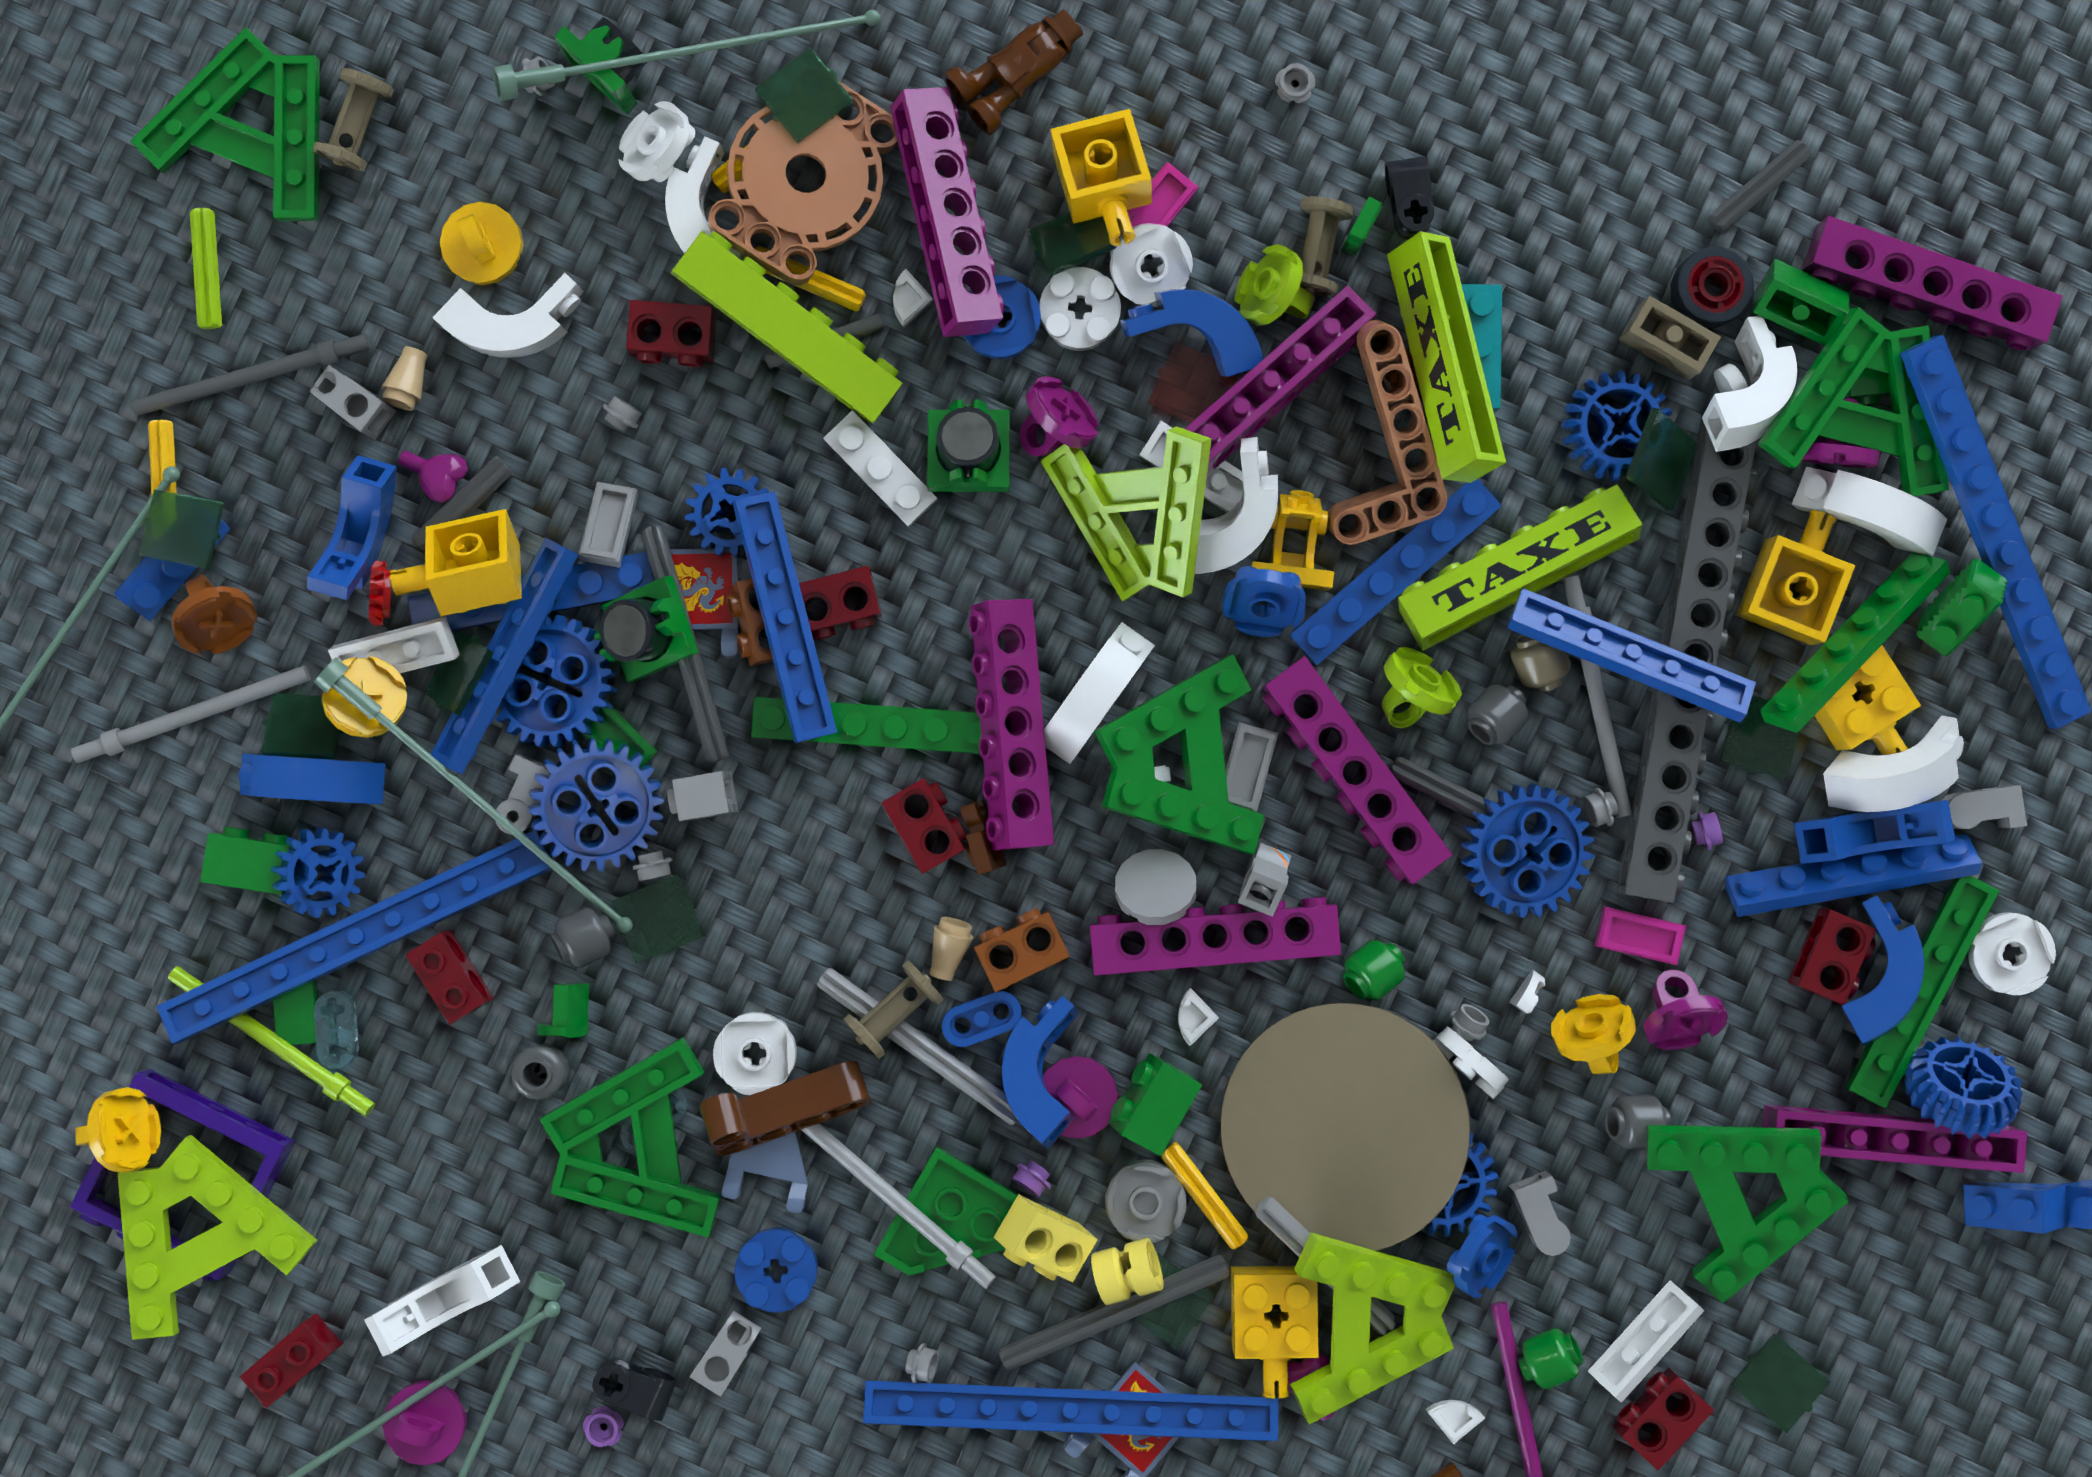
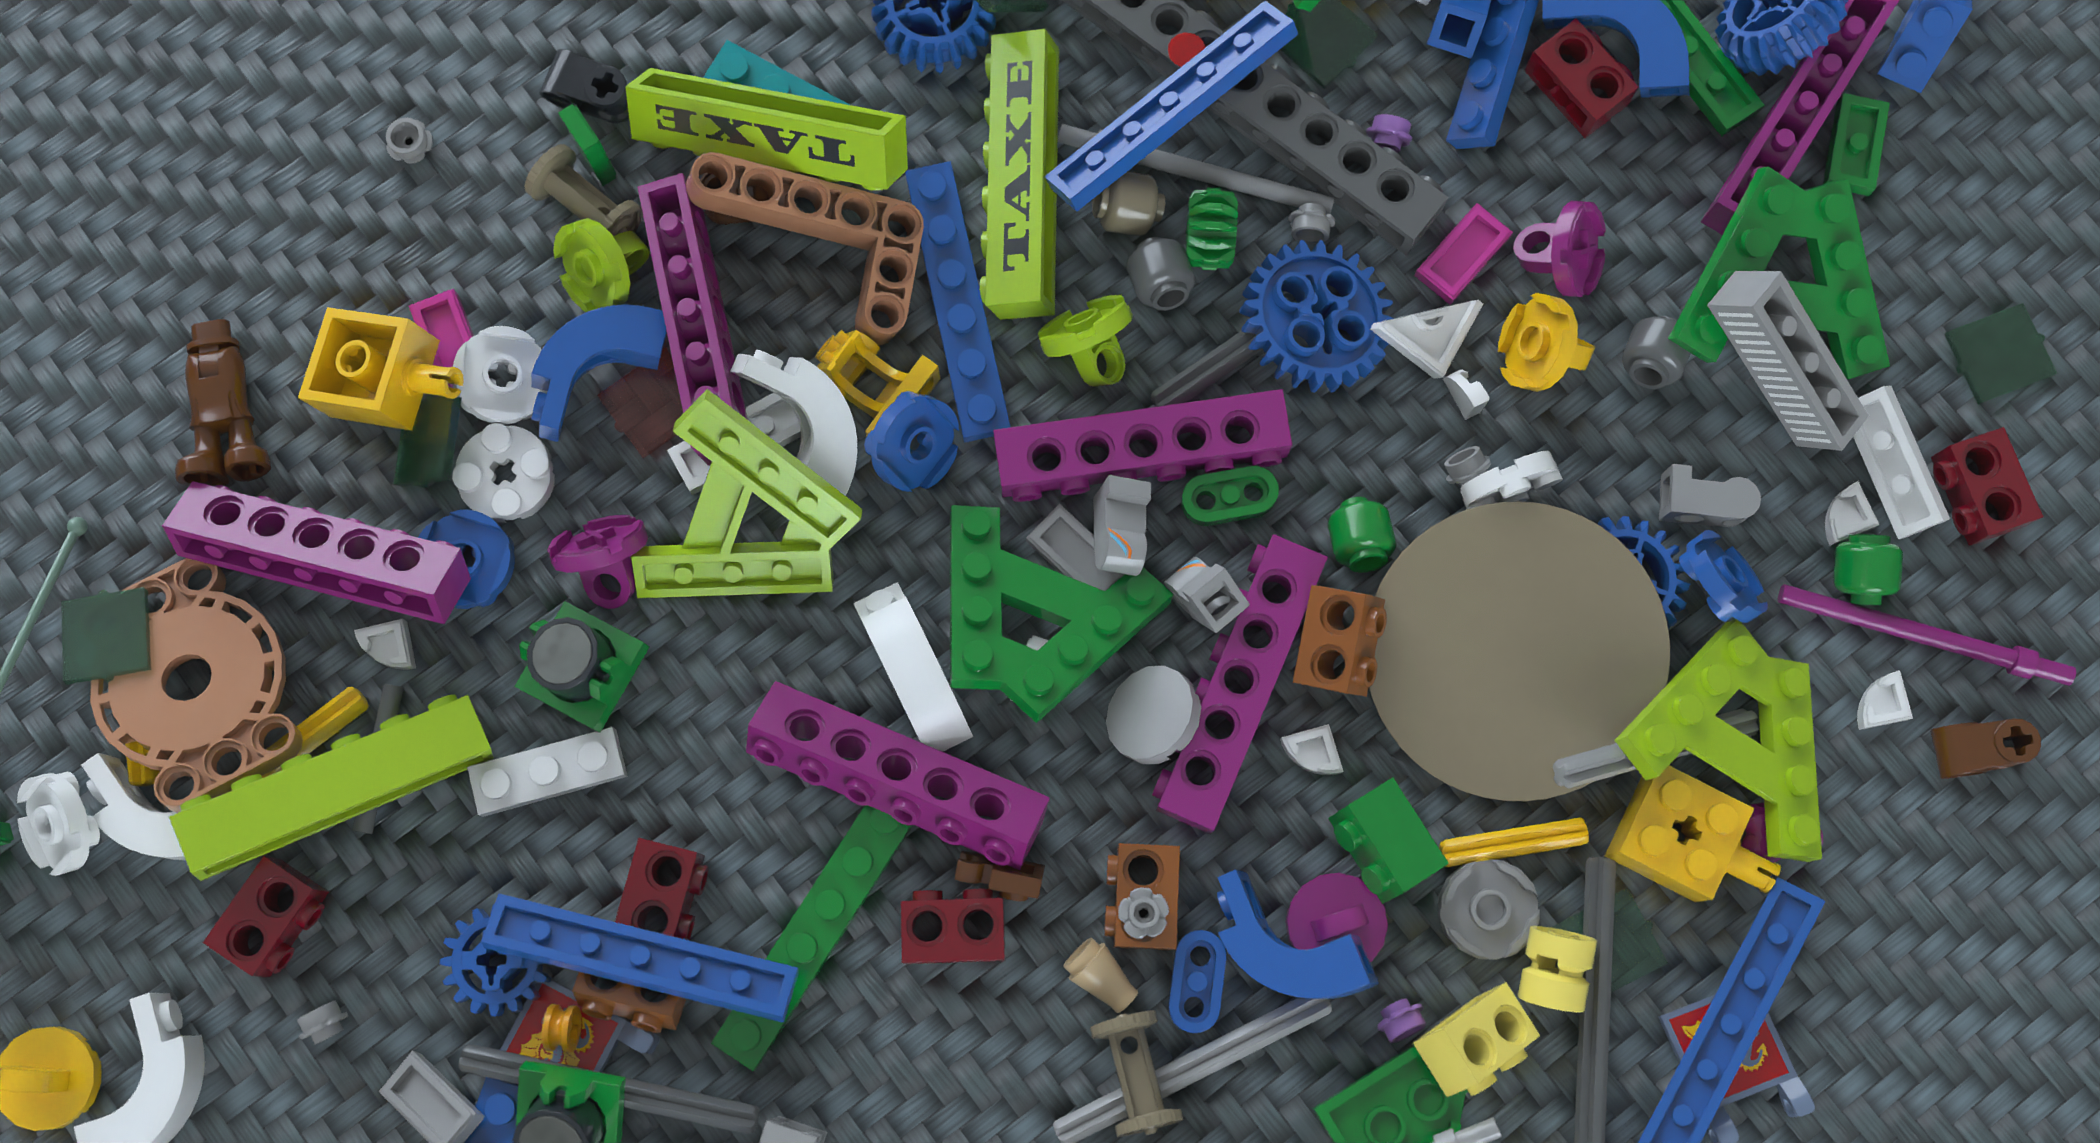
camera: 65 degrees left, 10 degrees down
(708, 586) = (561, 1028): none -> light orange bush
(1003, 945) = (1129, 913): none -> light grey plate
(1281, 985) = (1327, 638): none -> dark orange brick
(1283, 789) = (1121, 525): none -> light grey leg
(1352, 856) = (1228, 495): none -> green plate
(1552, 735) = (1211, 228): none -> green gear
(1558, 944) = (1430, 336): none -> white tile
(1587, 1326) = (1849, 515): none -> white tile
(1675, 1223) = (1788, 359): none -> light grey brick
(1686, 640) = (1184, 48): none -> red sticker
(1892, 1194) = (1857, 142): none -> green plate

